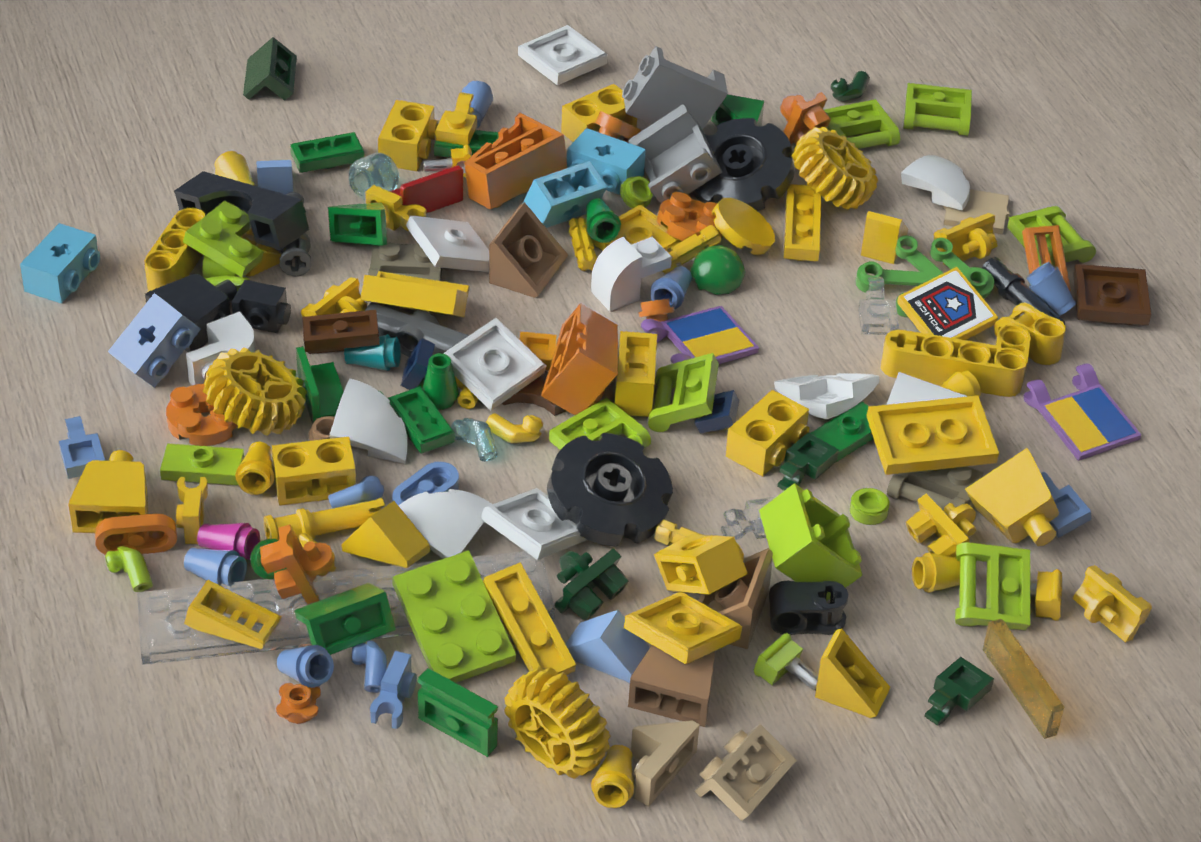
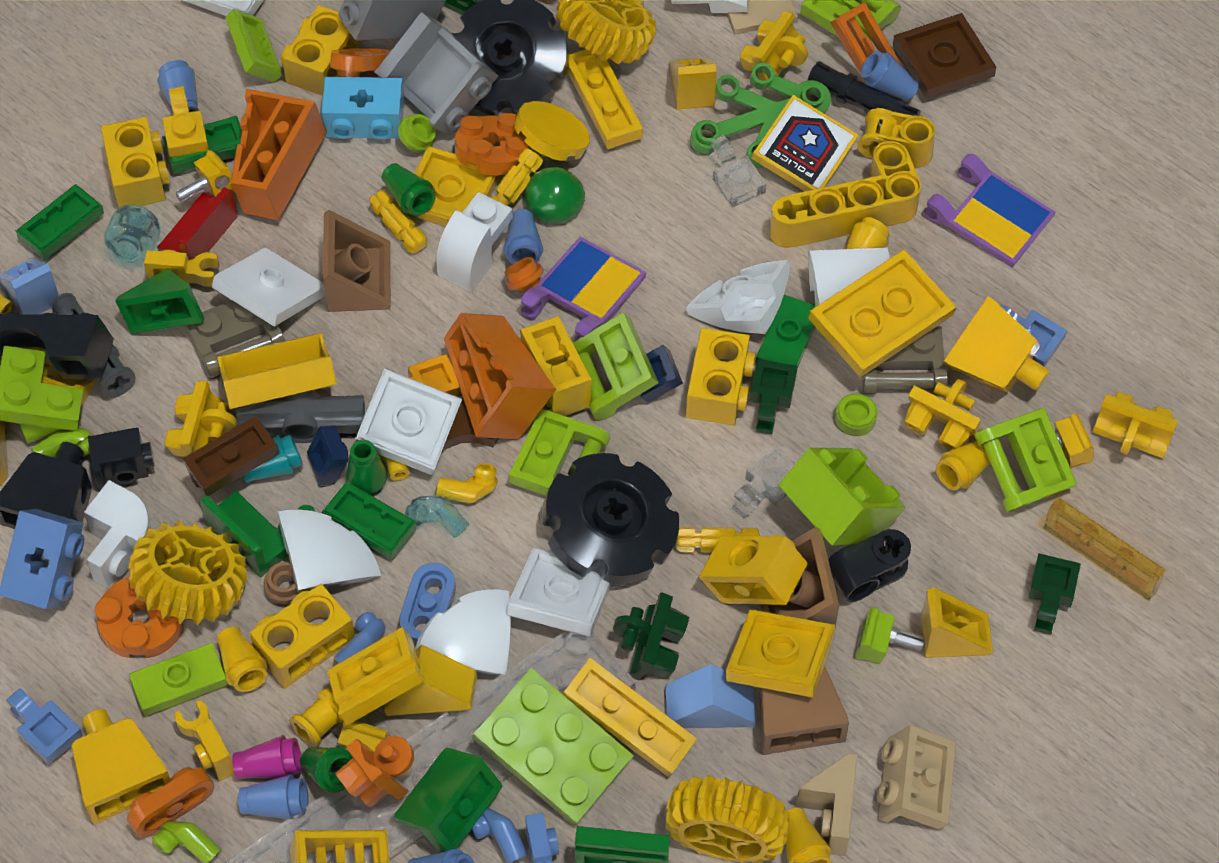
camera: 25 degrees left, 15 degrees up
(343, 505) = (375, 675): none -> yellow plate
(549, 97) = (253, 45): none -> lime plate
(564, 193) = (352, 172): medium azure brick -> none

